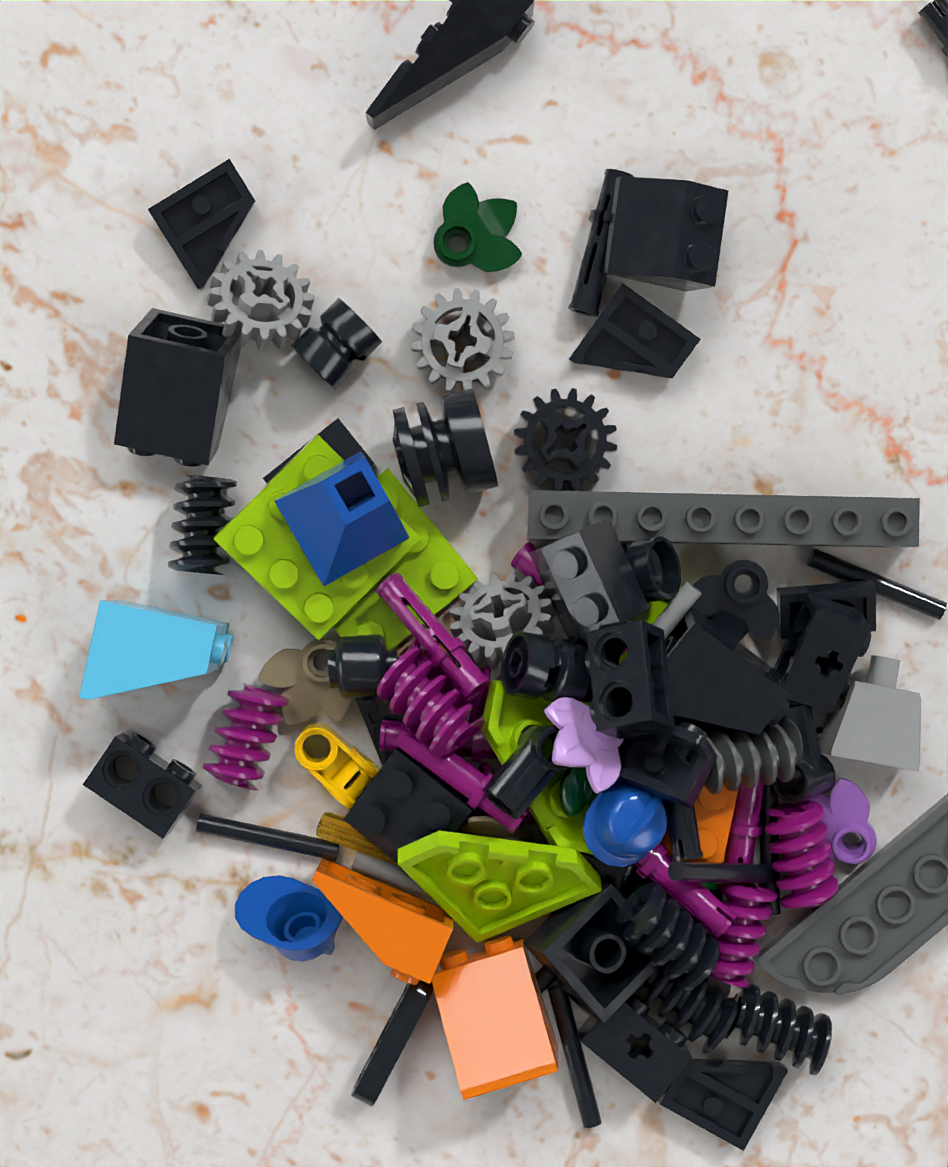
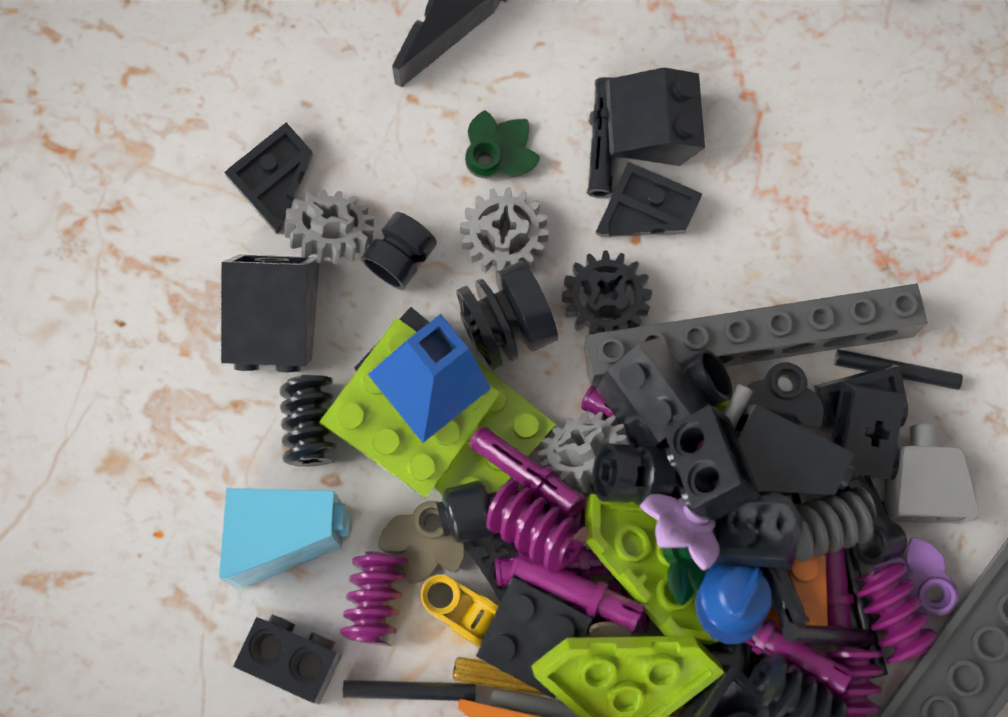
camera: 15 degrees left, 15 degrees down
(524, 772) = (634, 567): black piece -> none

